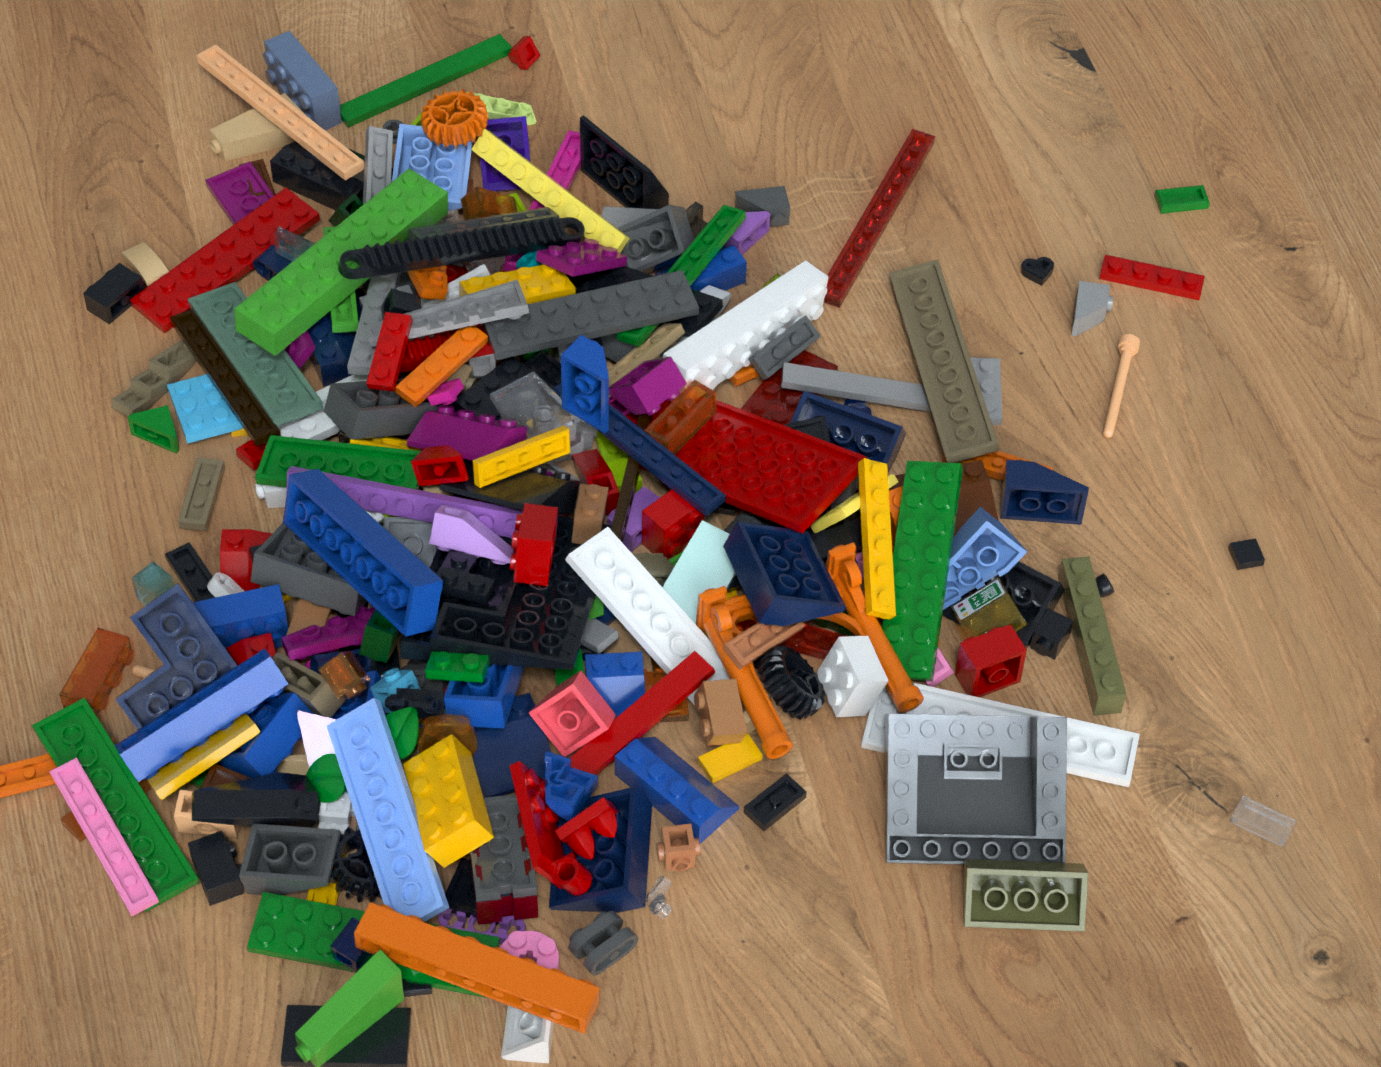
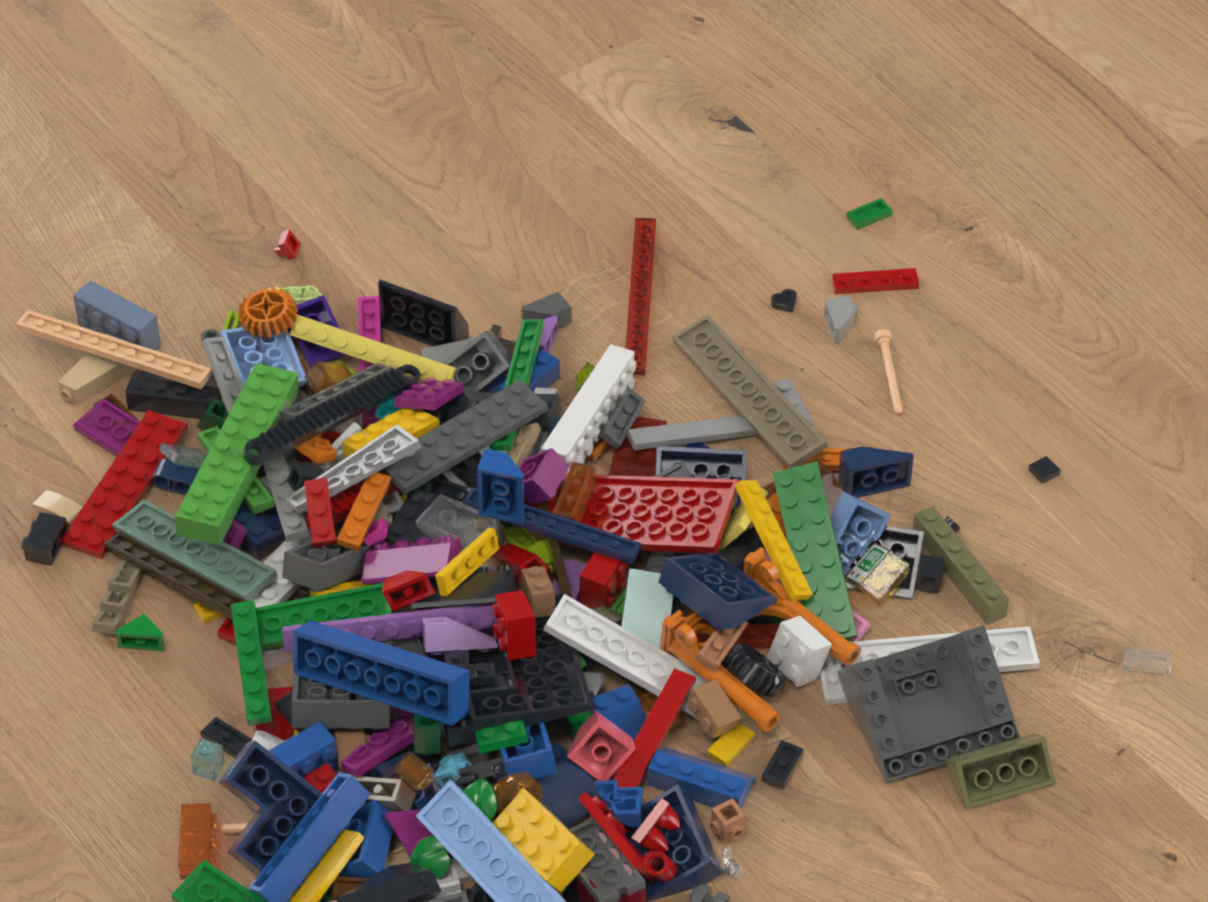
camera: 20 degrees left, 5 degrees down
(201, 409) = (170, 608): medium azure plate -> none
(201, 494) = (205, 676): dark tan plate -> none
(243, 495) = (251, 663): none -> green plate
(424, 80) = (214, 290): green tile -> none
(990, 661) = (896, 607): red brick -> none

